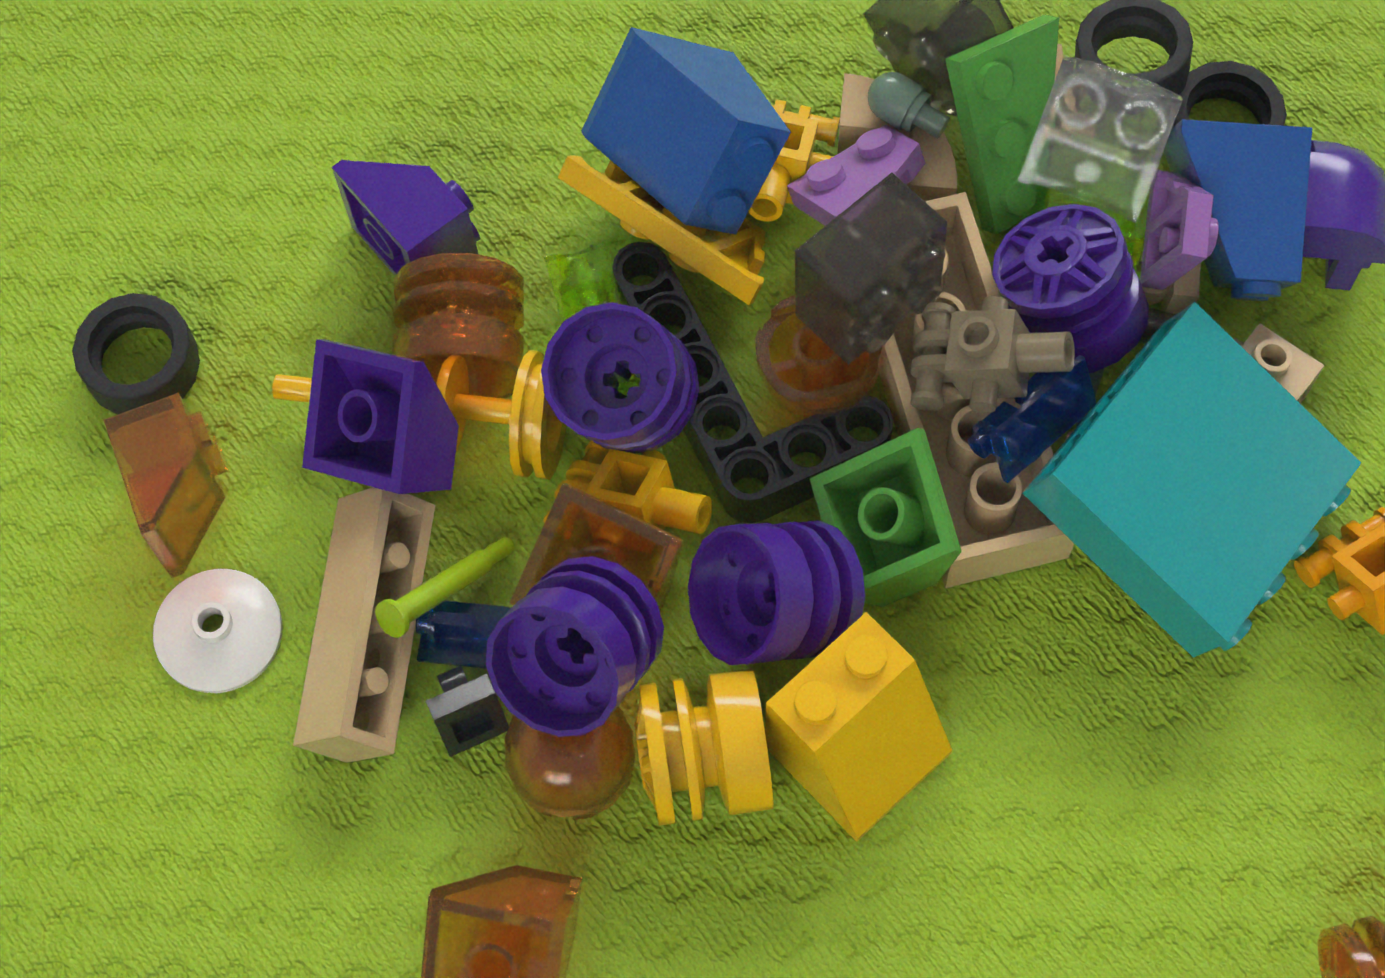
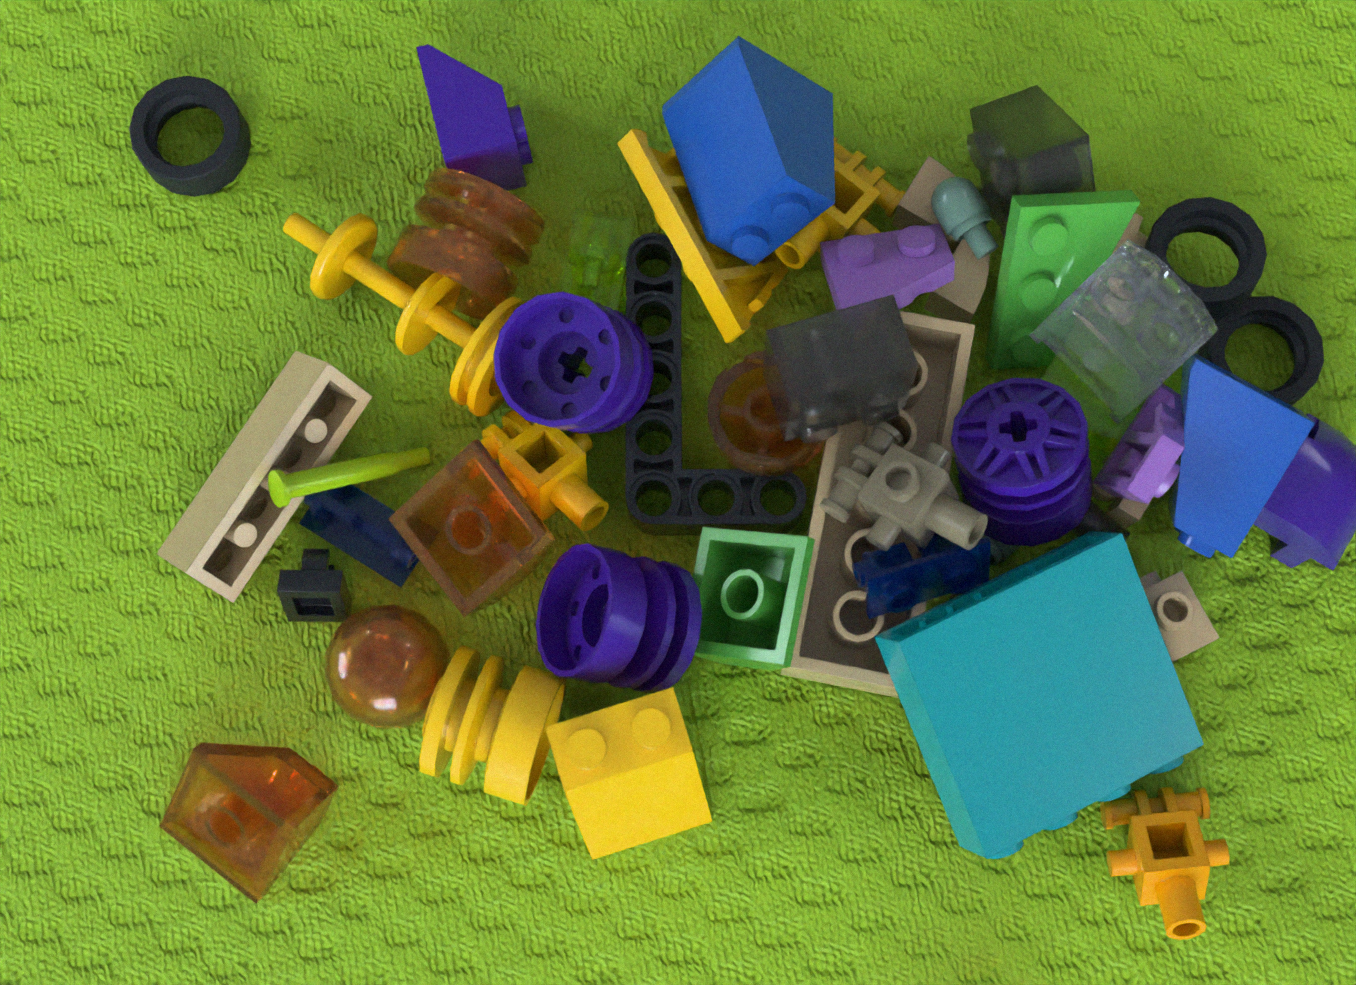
camera: 25 degrees right, 10 degrees up
(169, 476) = (156, 268): clear orange slope -> none
(235, 651) = (172, 430): white dish -> none
(378, 421) = (343, 310): dark purple slope -> none
(574, 646) = (412, 593): dark purple wheel -> none

